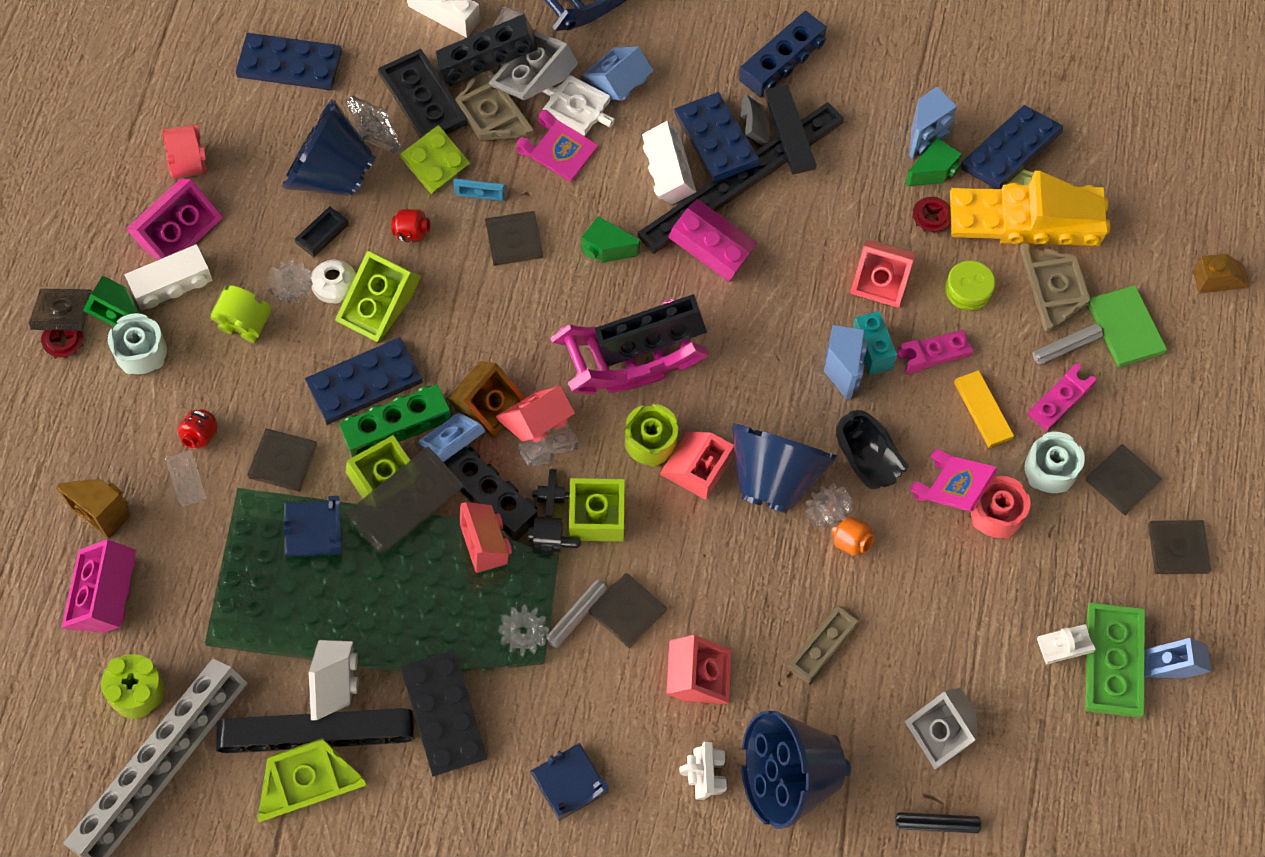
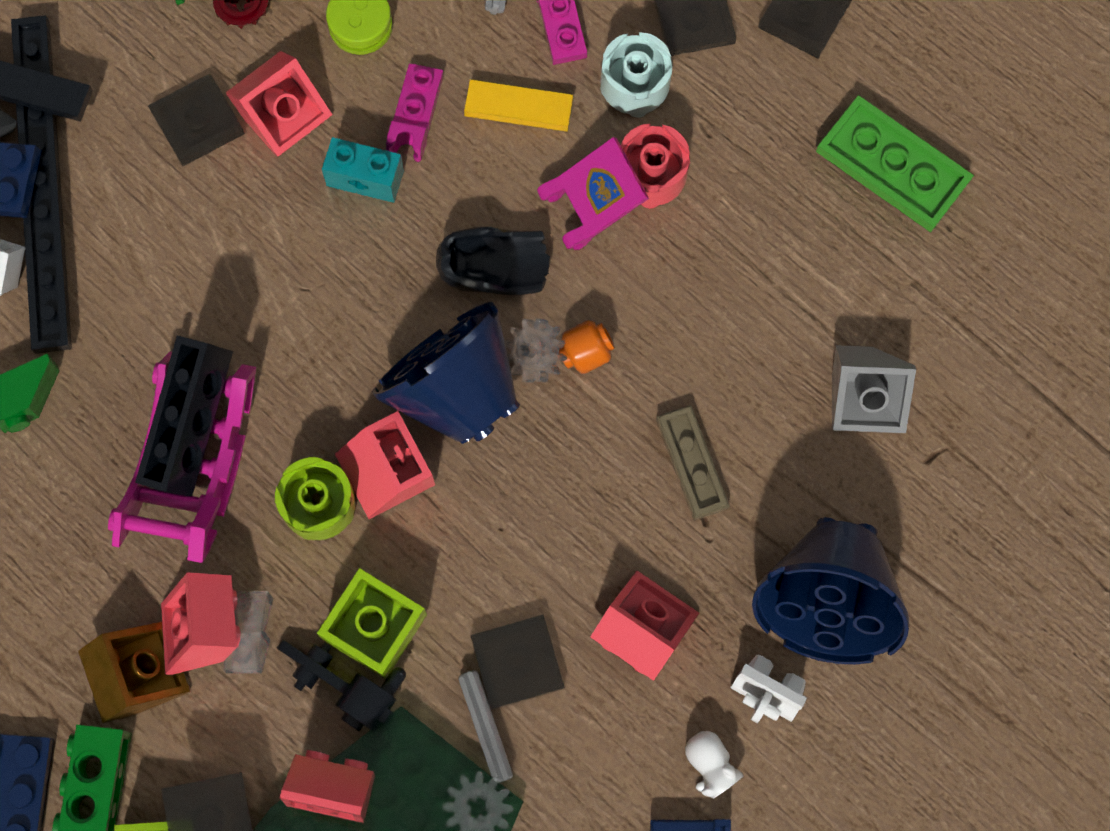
camera: 60 degrees left, 10 degrees up
(452, 436) = (160, 748): medium blue tile -> none
(514, 522) = (323, 736): black brick -> none
(639, 759) = (711, 760): none -> white animal
(712, 239) = (104, 267): dark pink slope -> none
(840, 236) = (196, 119): none -> clear smoke tile
(845, 359) = (366, 216): medium blue slope -> none
(938, 822) = (968, 468): black axle -> none
(1065, 644) = (852, 202): white hips -> none
(1177, 660) = (933, 100): medium blue slope -> none

